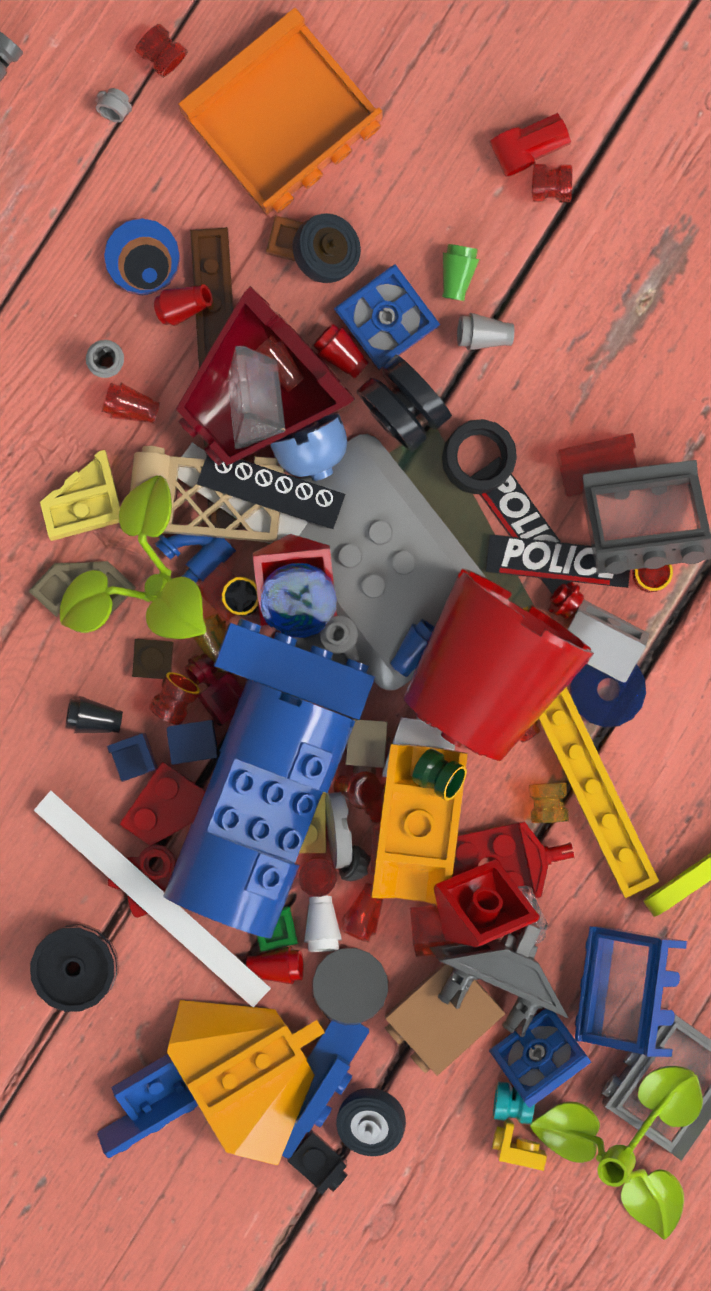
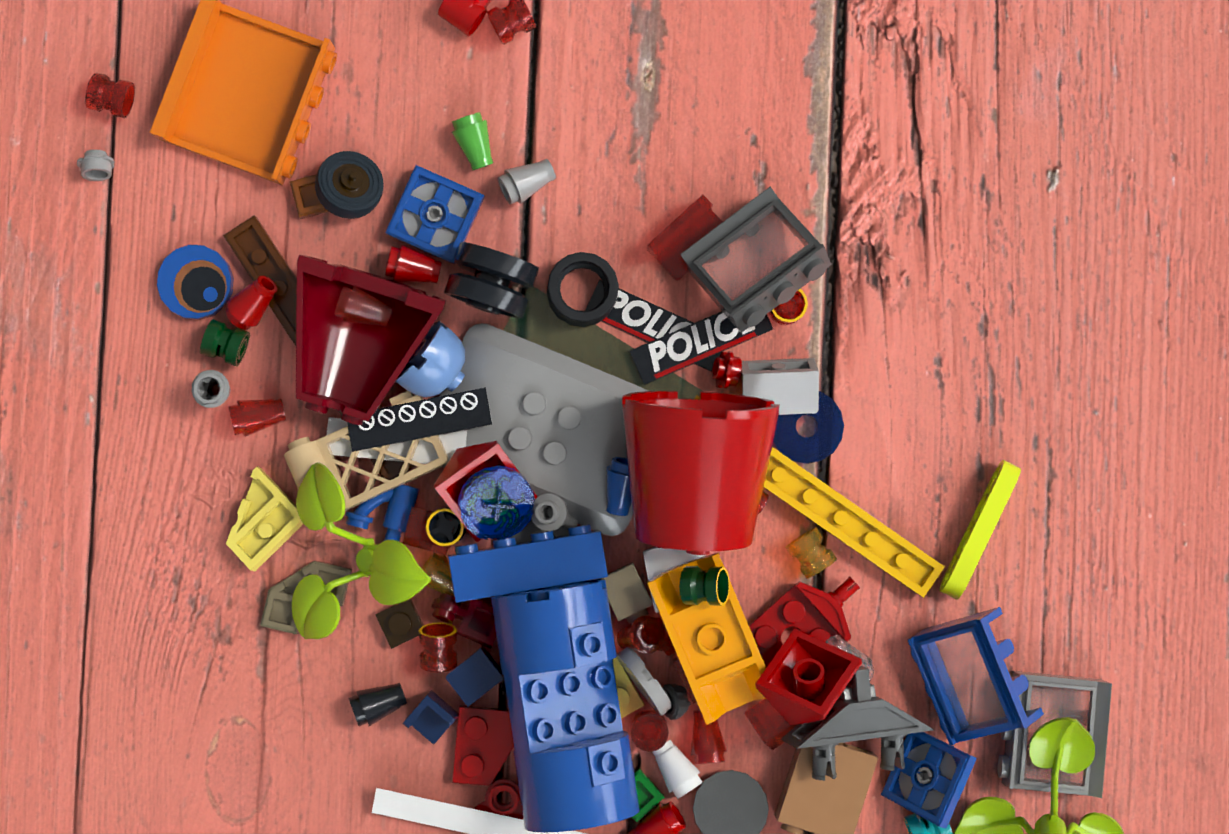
camera: 30 degrees left, 0 degrees up
(138, 325) = (224, 342): none -> dark green wheel
(254, 397) = (358, 348): clear slope -> none

